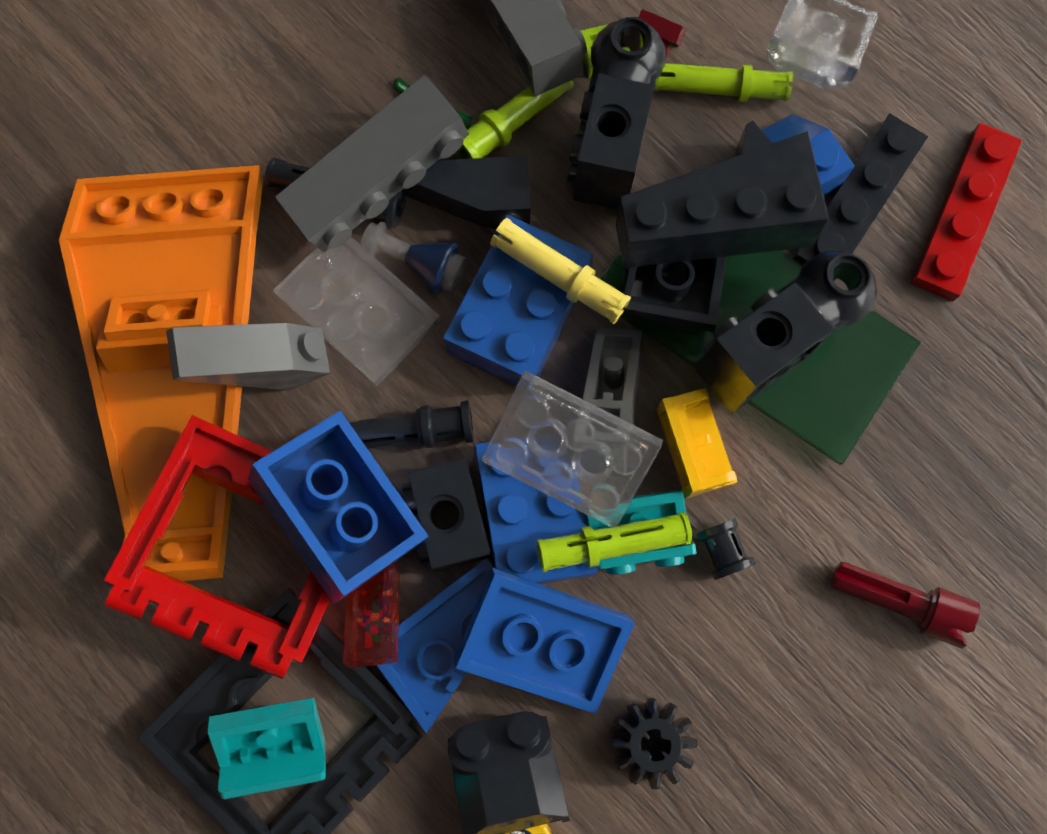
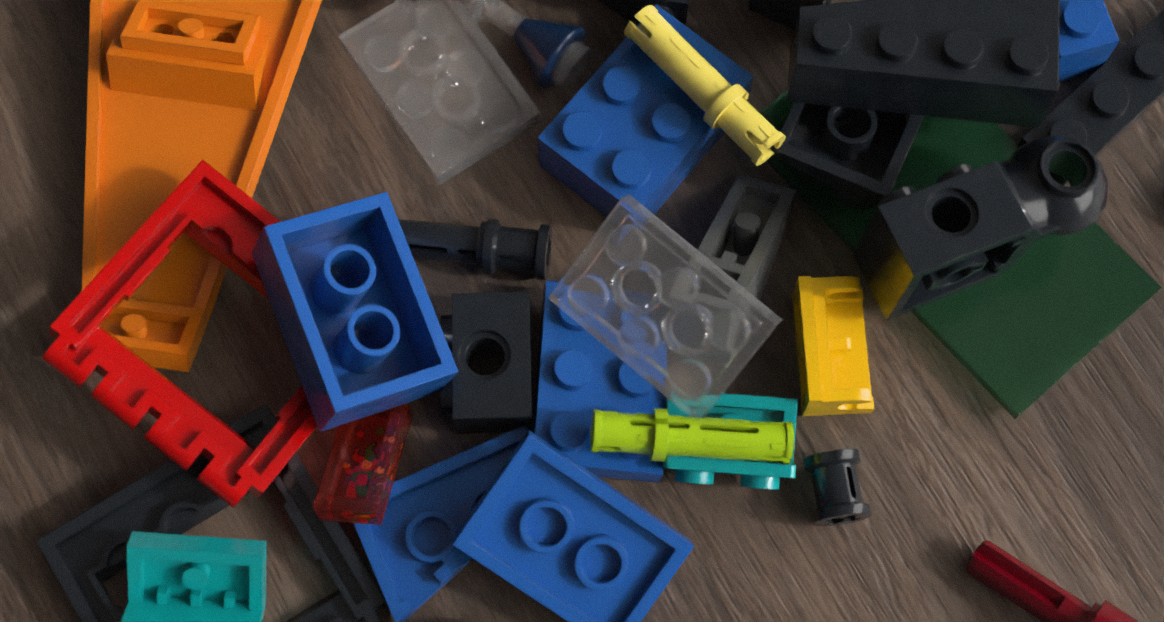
camera: 15 degrees right, 5 degrees down
(248, 355) = (293, 103): slope -> none

